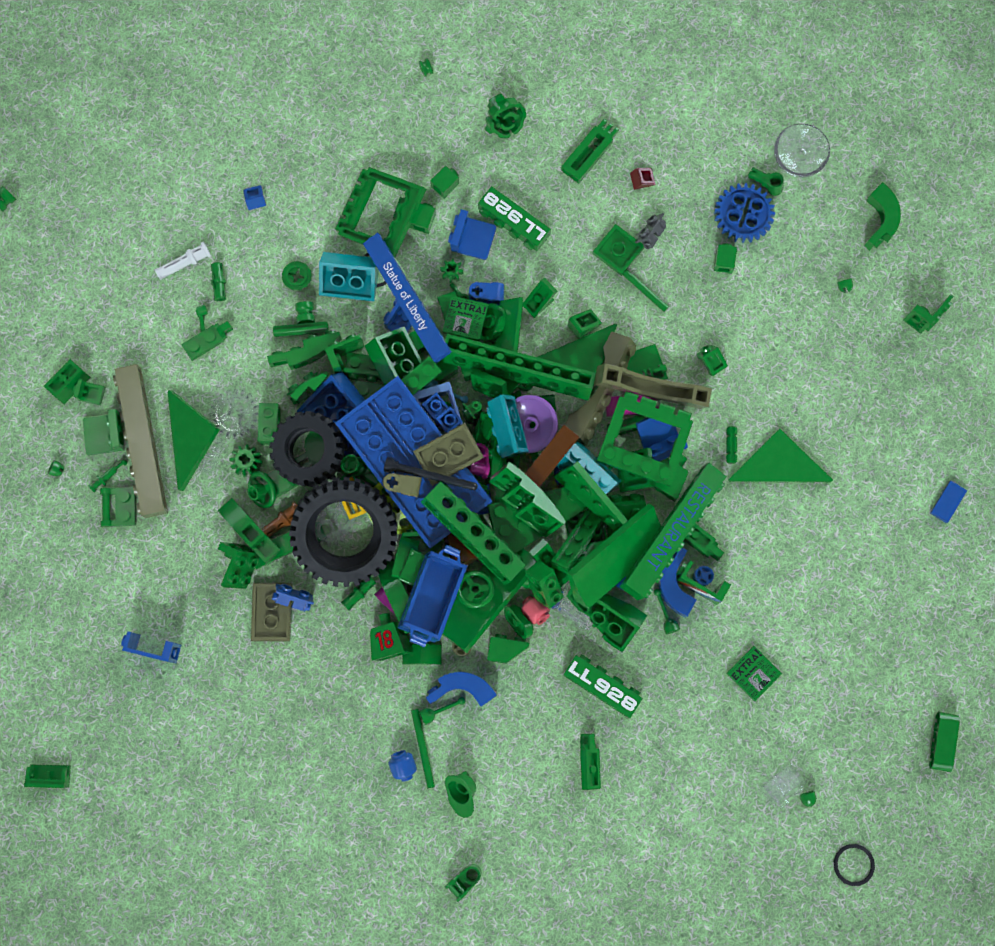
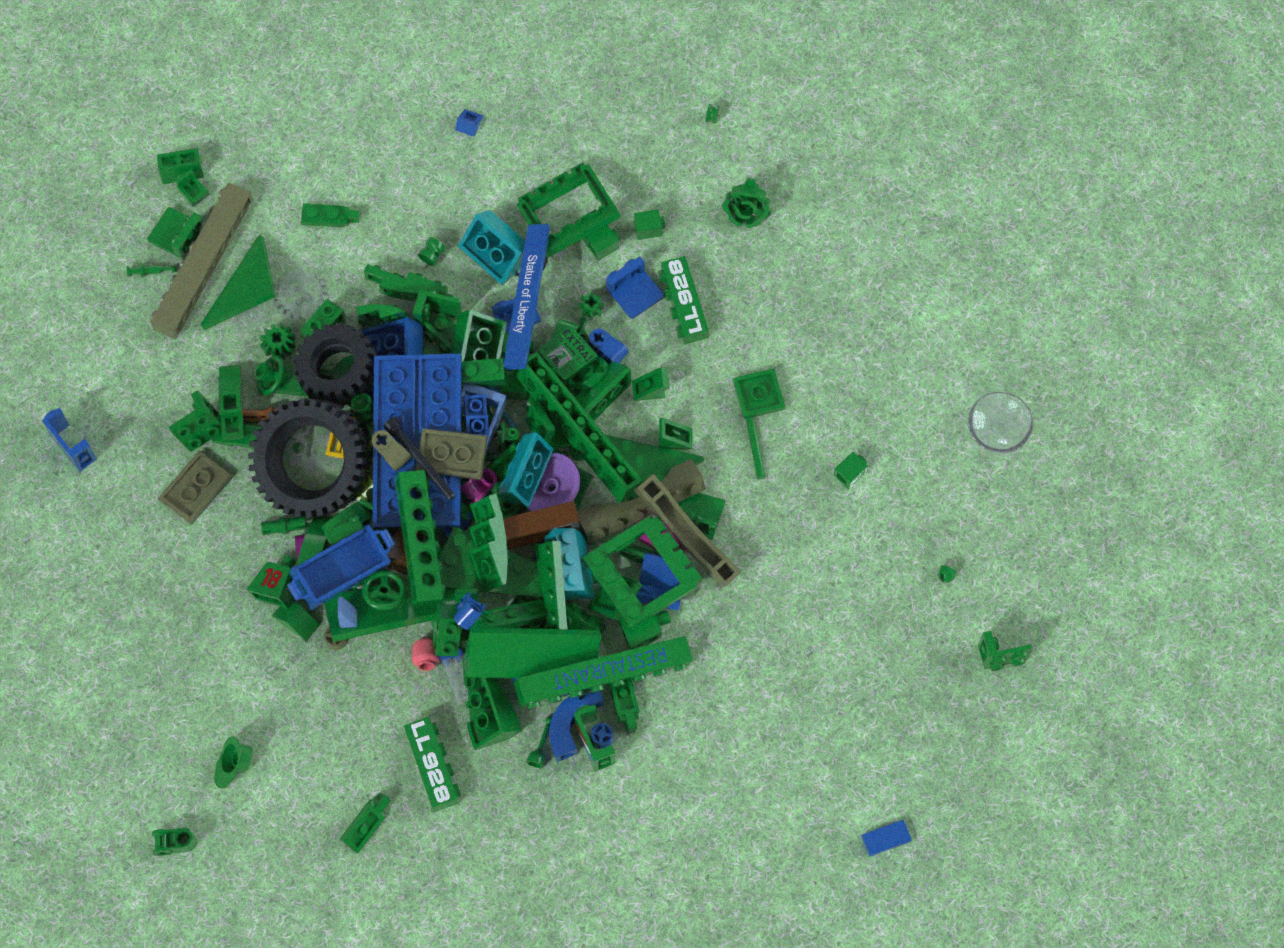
camera: 35 degrees right, 10 degrees down
(54, 468) = (110, 232): green hinge -> none
(124, 507) = (142, 308): green plate -> none
(177, 264) = (370, 134): white pin -> none
(201, 311) = (342, 187): green hand -> none
(218, 281) = (378, 172): green pin -> none
(293, 268) = (451, 206): green gear -> none
(300, 329) = (417, 263): green axle -> none
(301, 599) = (229, 493): blue hinge -> none
(402, 765) = (200, 701): blue head -> none
(422, 748) = (230, 701): green bar -> none
(428, 715) = (258, 675): green hinge -> none
(462, 626) = (346, 614): none -> medium blue slope
(466, 681) = (305, 662): blue arch -> none
(504, 650) = (371, 669): green slope -> none
(518, 621) = (402, 651): green plate -> none
(554, 561) = (468, 611): none -> blue piece
(583, 157) = (794, 291): green hinge -> none
(642, 178) = (834, 346): dark red slope -> none
(651, 232) = (794, 398): dark grey hinge -> none
(712, 359) = (766, 551): green bracket -> none
(731, 444) = (723, 640): green axle -> none
(754, 673) = (579, 857): green tile -> none
(761, 218) = (891, 428): blue gear -> none
(767, 180) = (948, 428): green pin -> none
(780, 462) = (756, 687): green tile -> none
(890, 214) = (1044, 526): green arch -> none

